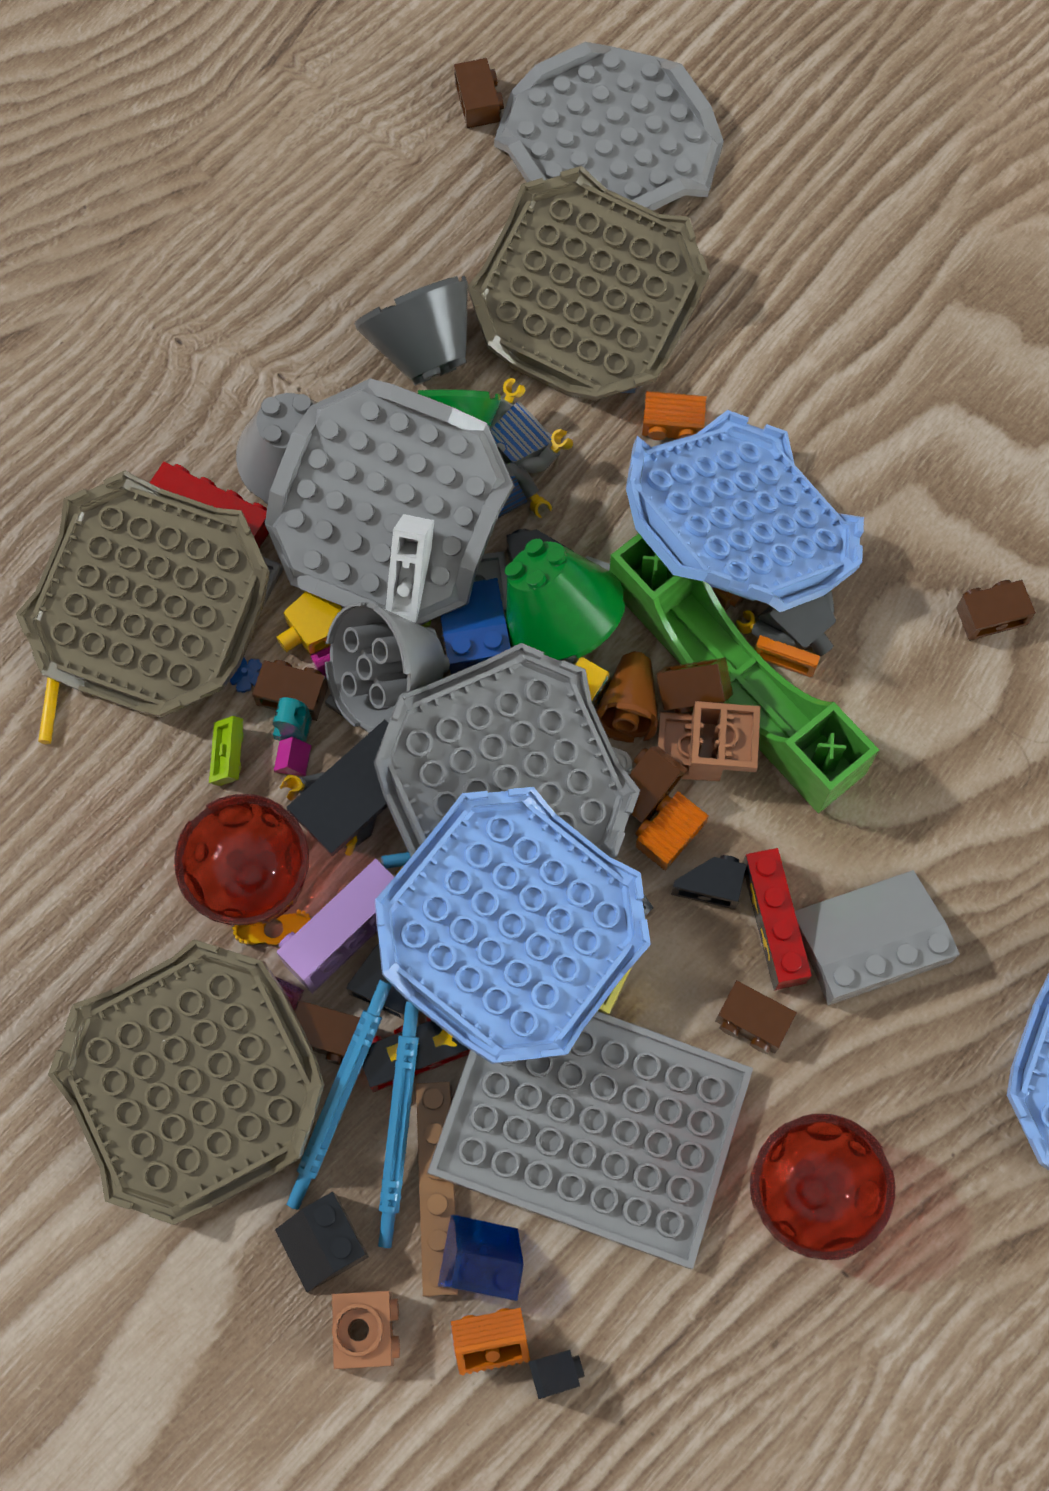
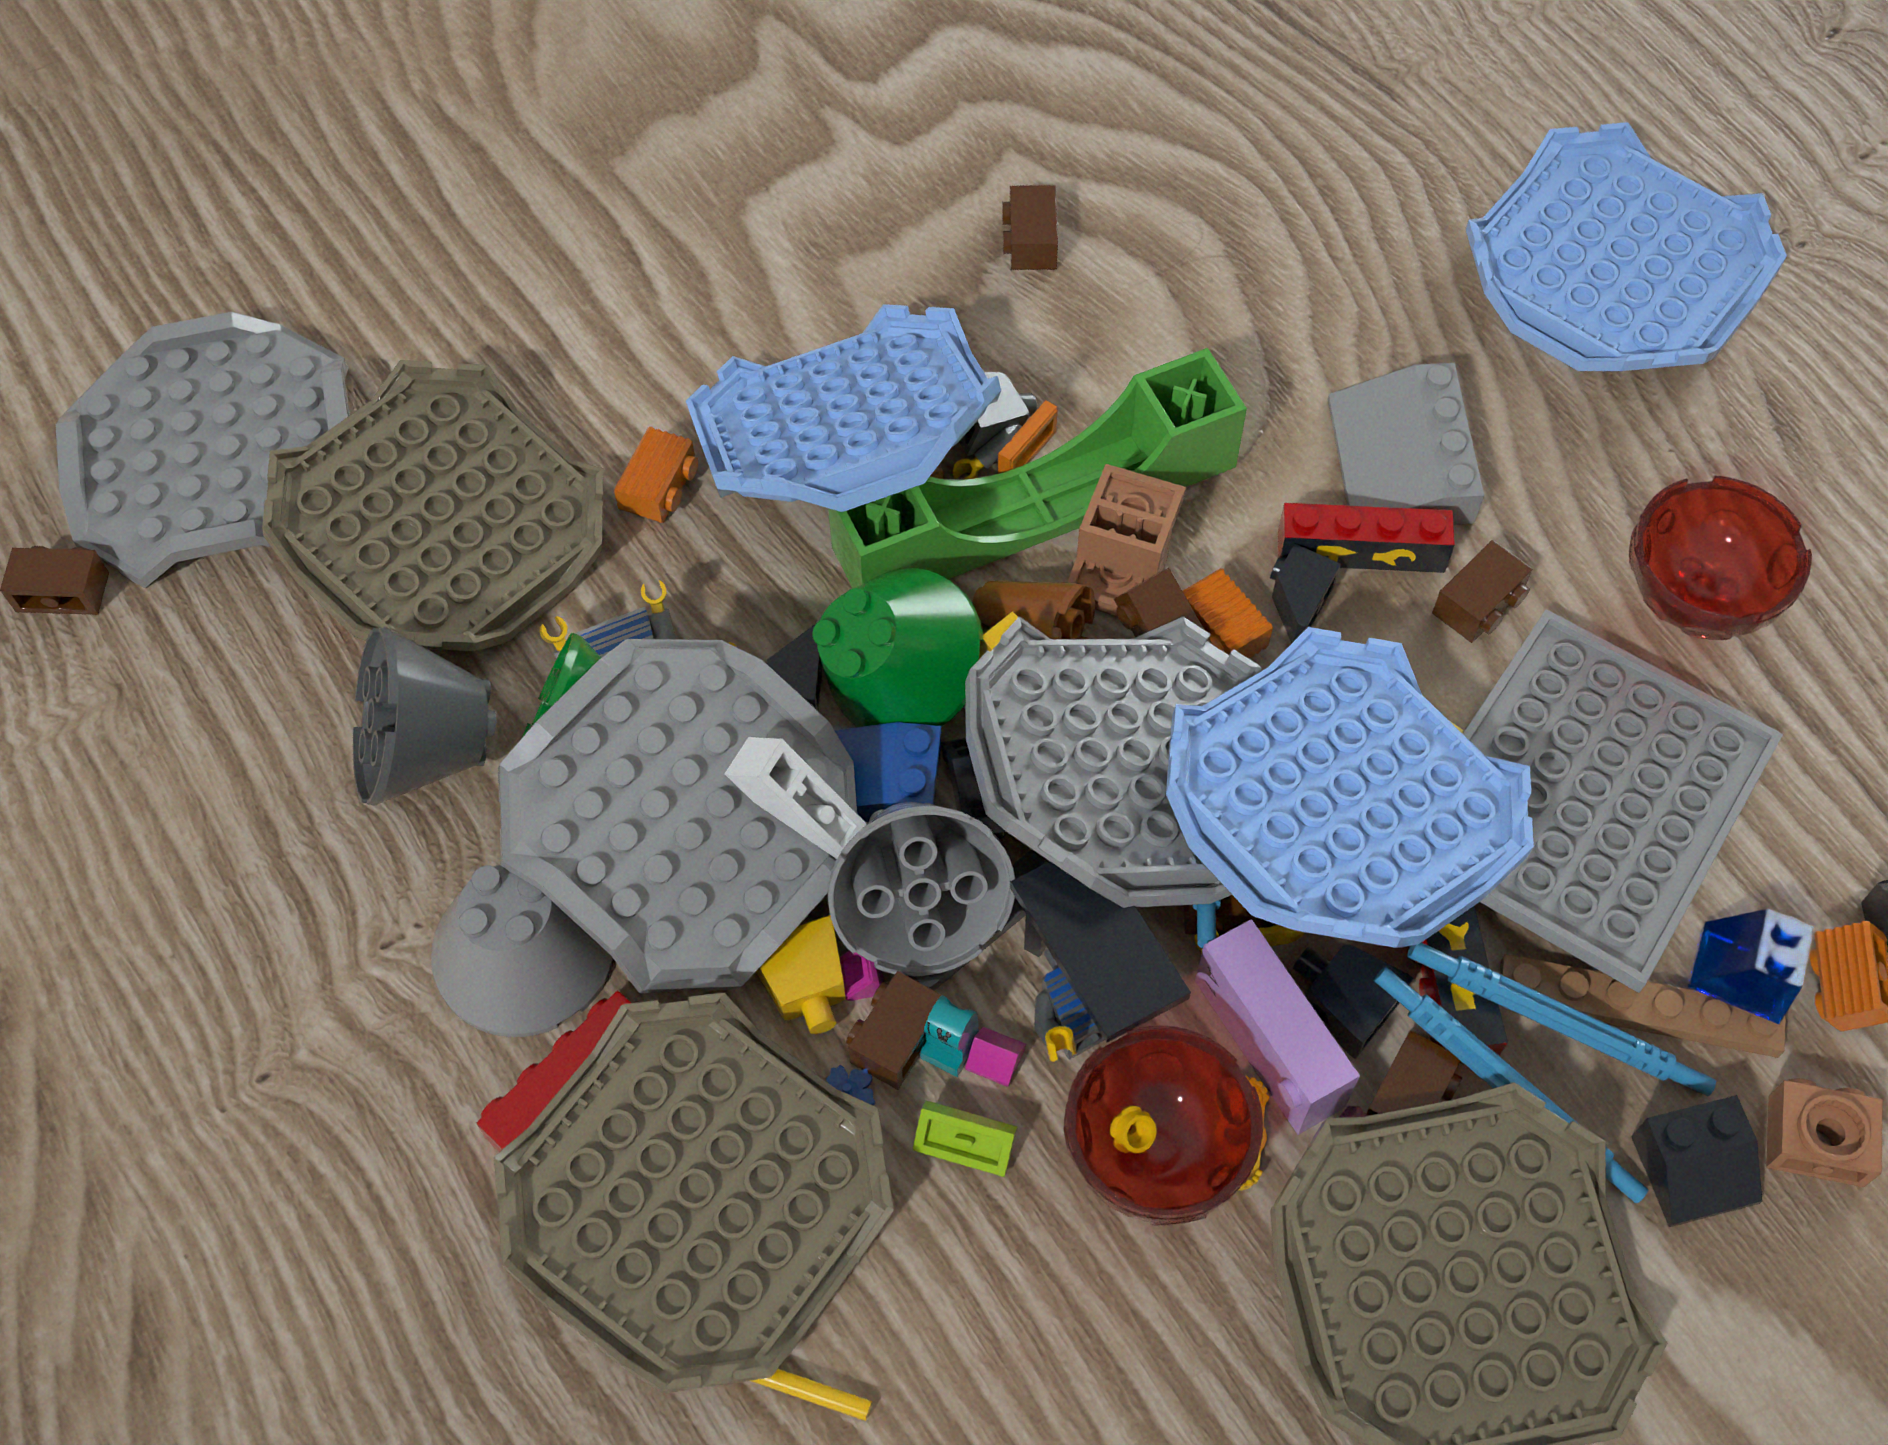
camera: 75 degrees left, 10 degrees down
(245, 849) = (1142, 1132): none -> yellow plate
(694, 682) = (1044, 535): reddish brown brick -> none

